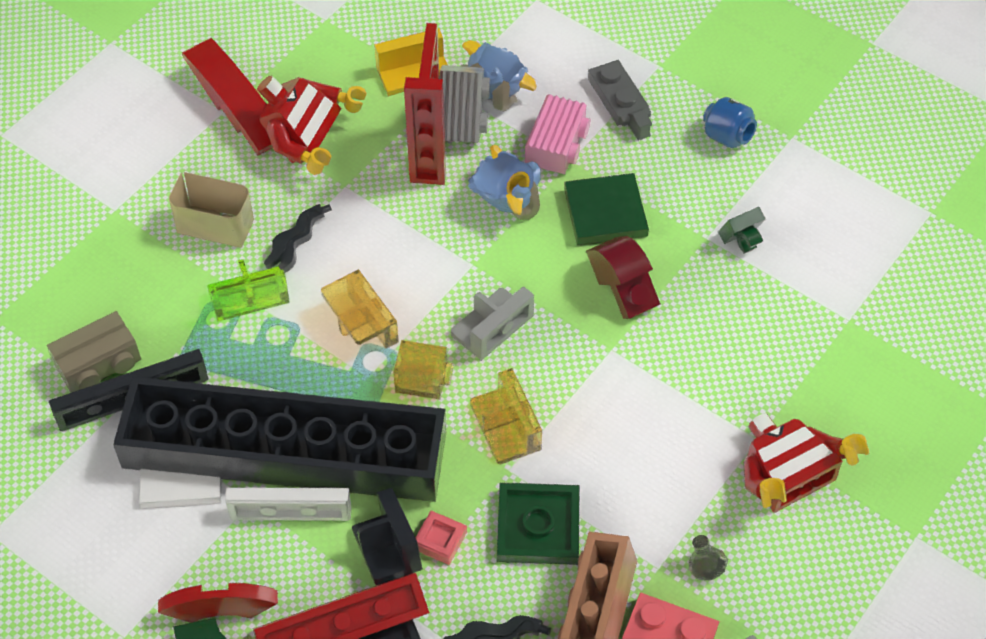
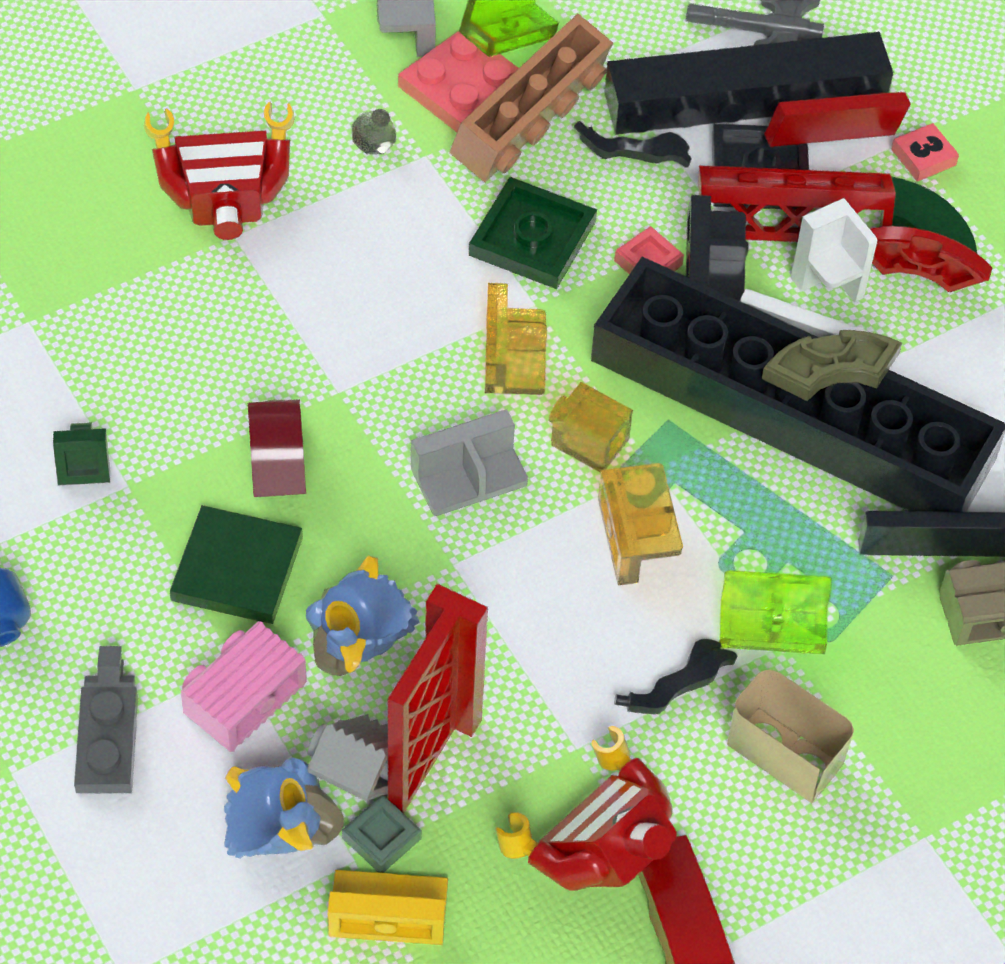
camera: 160 degrees left, 0 degrees up
(258, 439) = (832, 359): none -> olive tile
(289, 560) = (834, 250): none -> white panel

